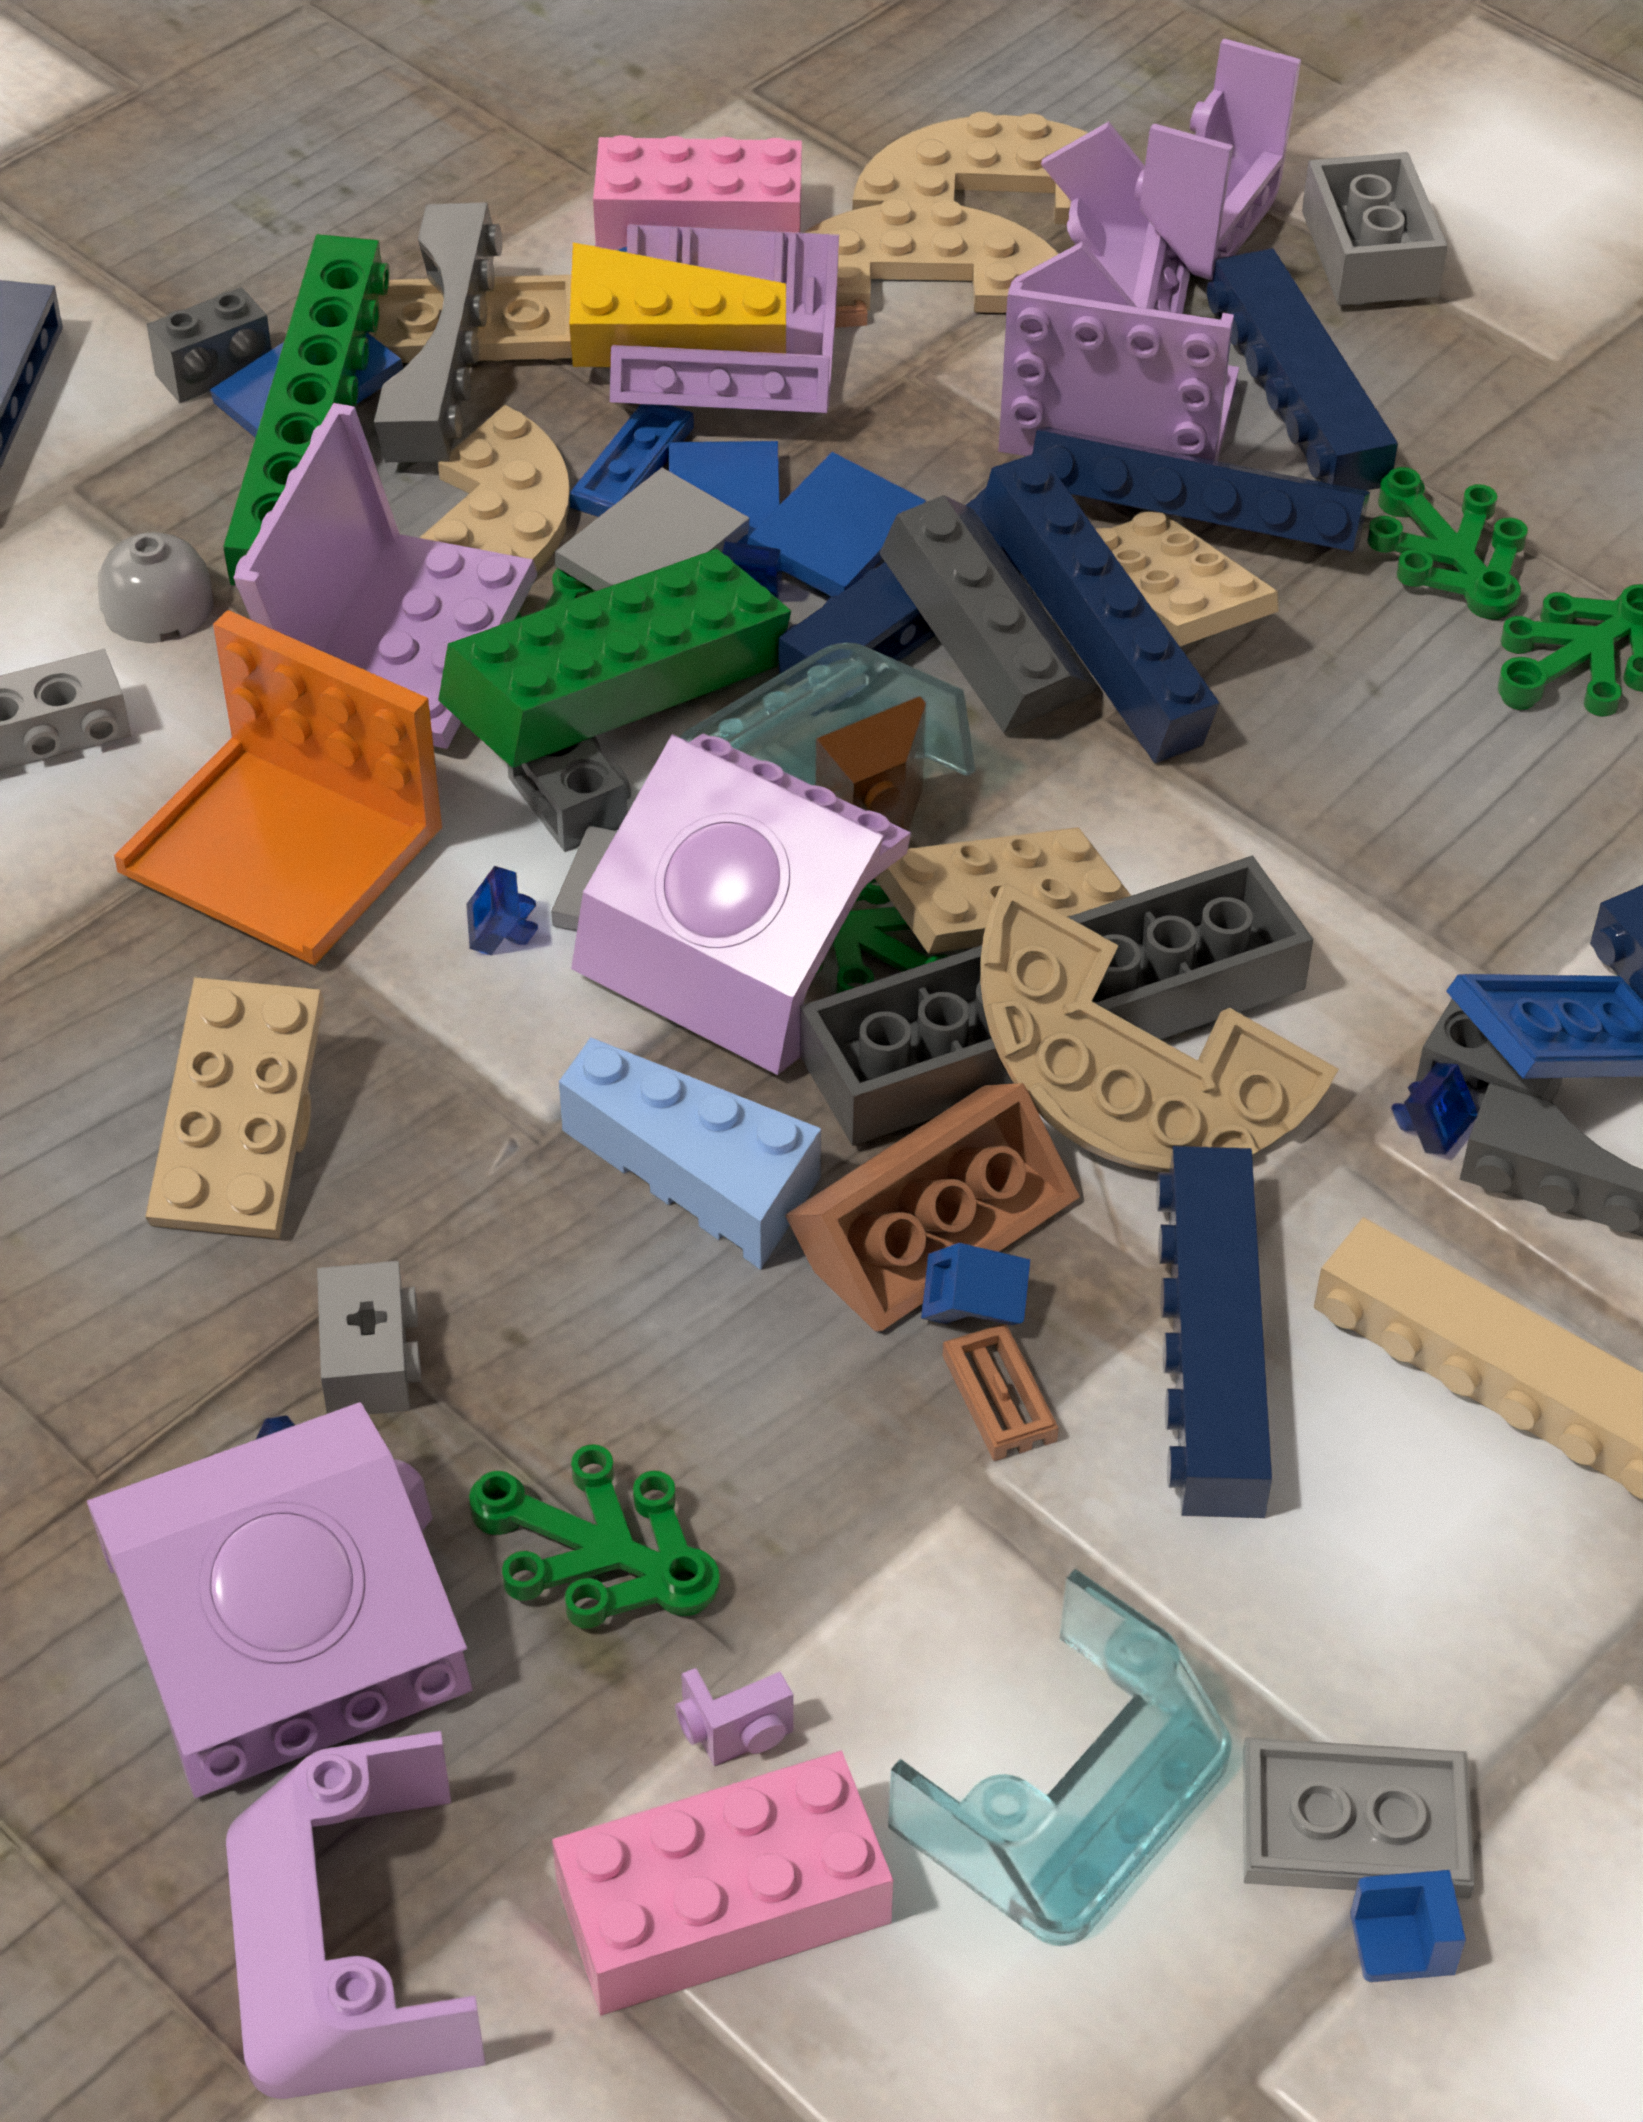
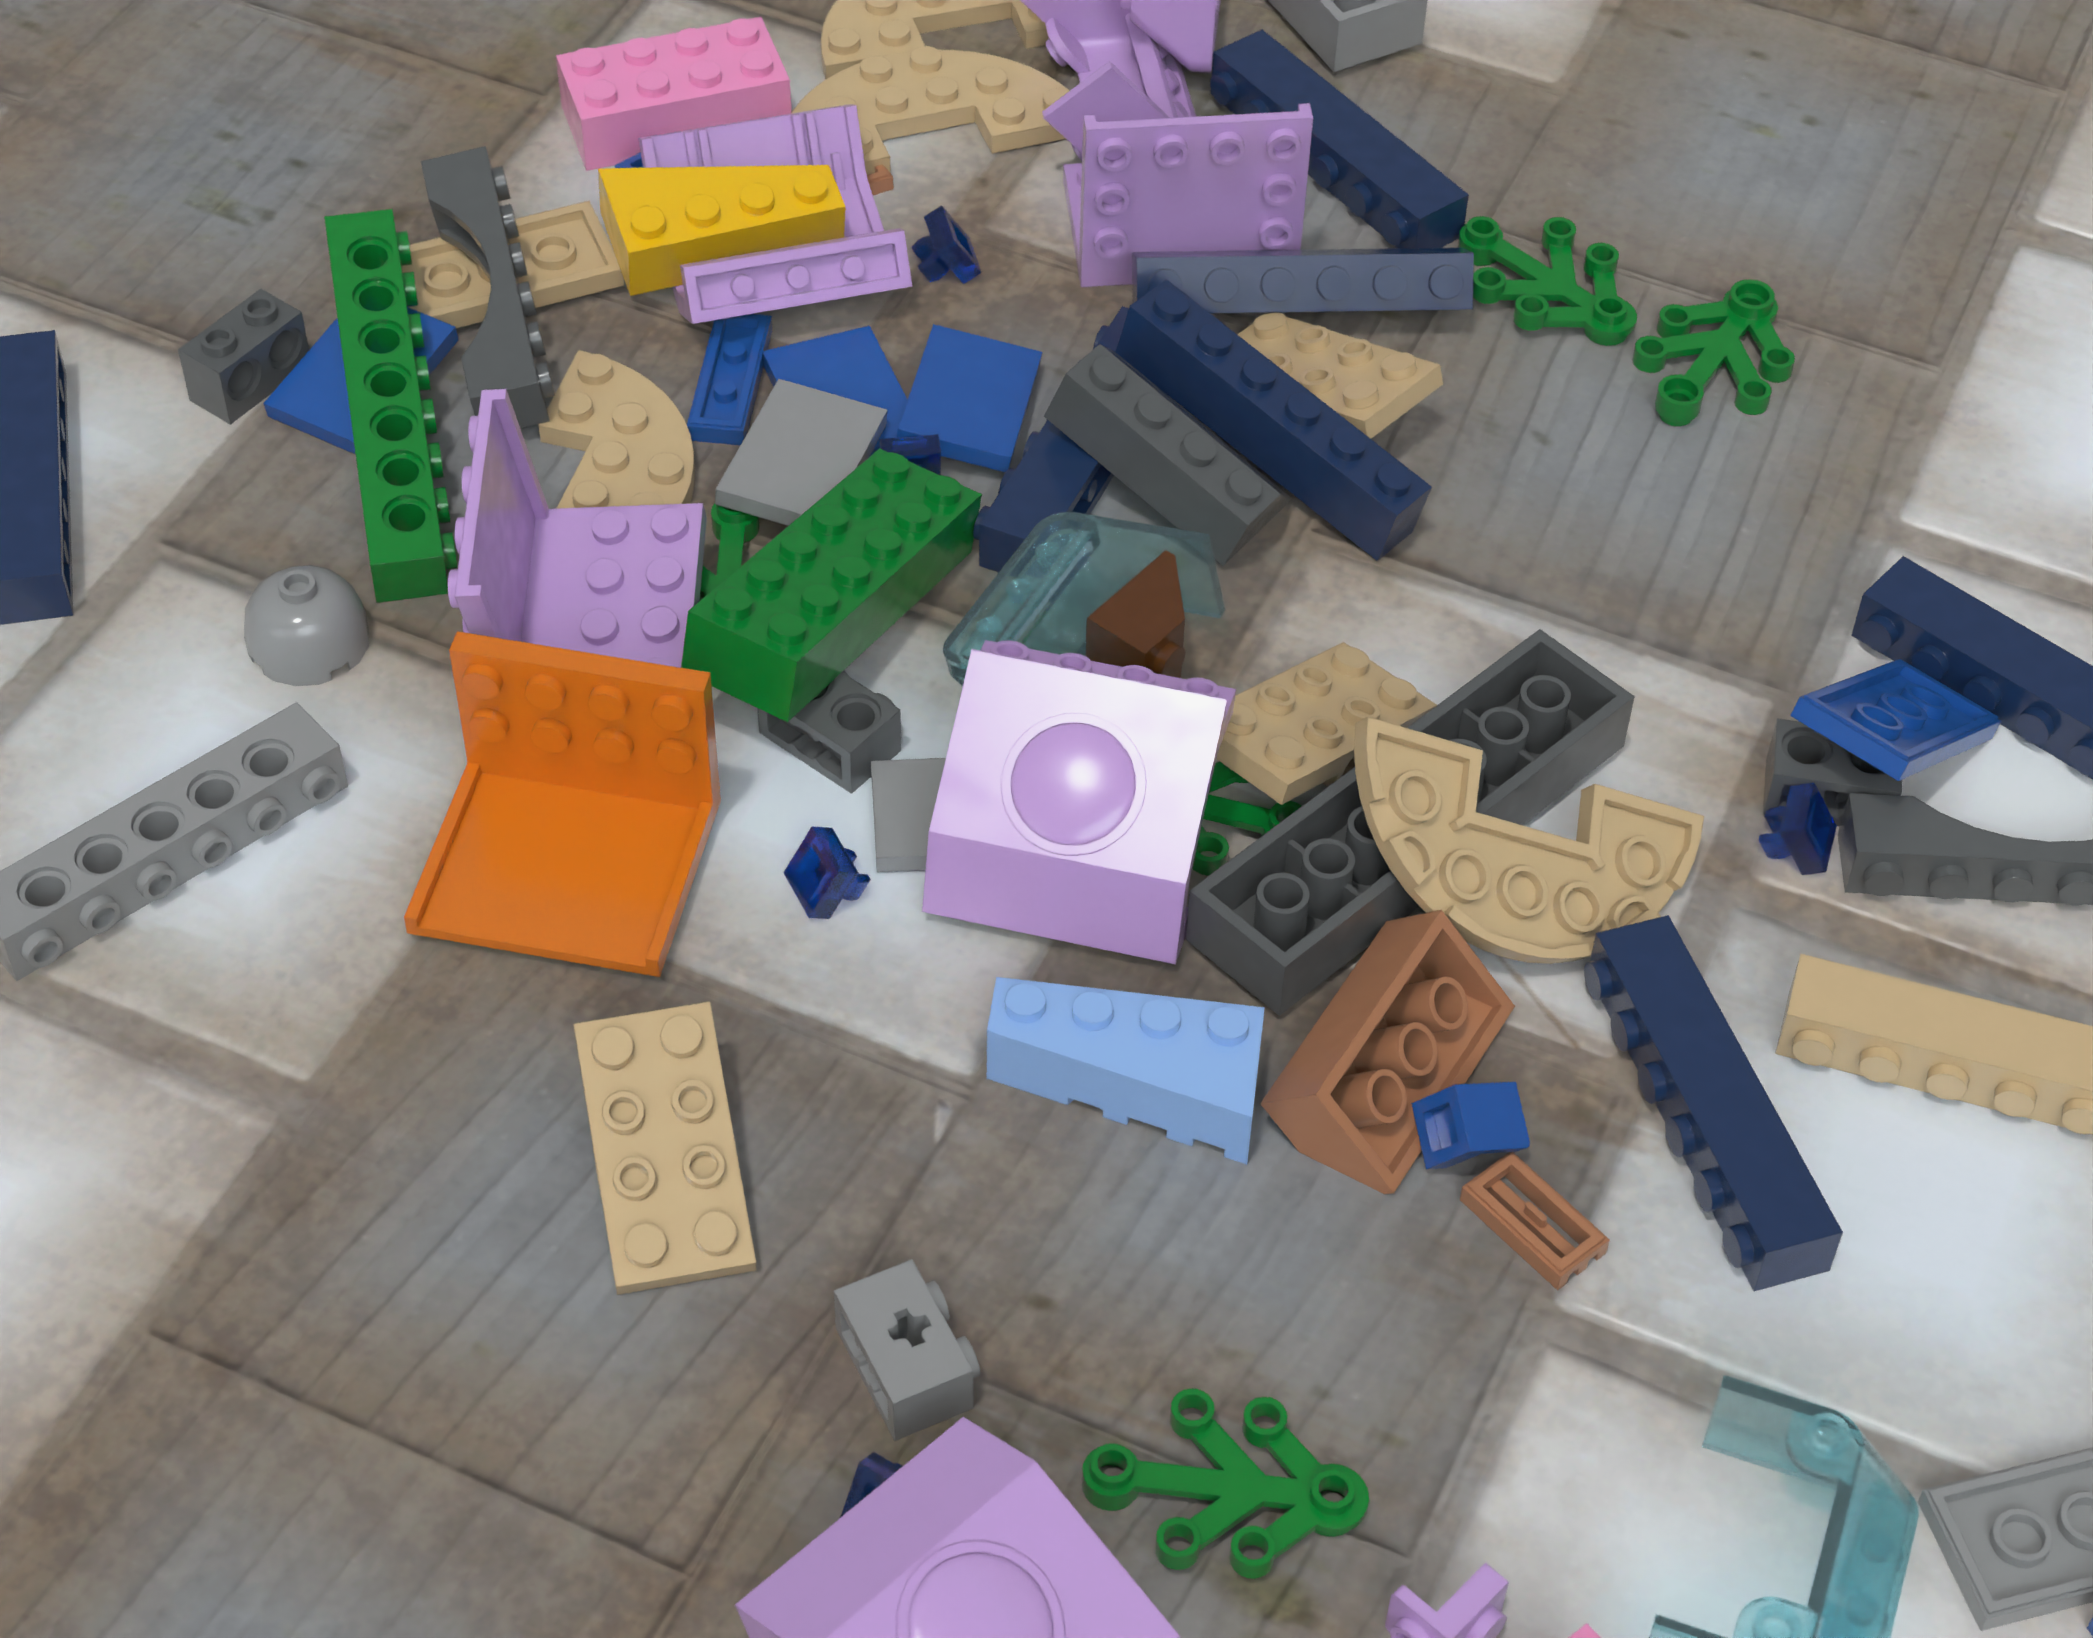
camera: 20 degrees left, 0 degrees up
(882, 387) = (945, 249): none -> clear blue tile

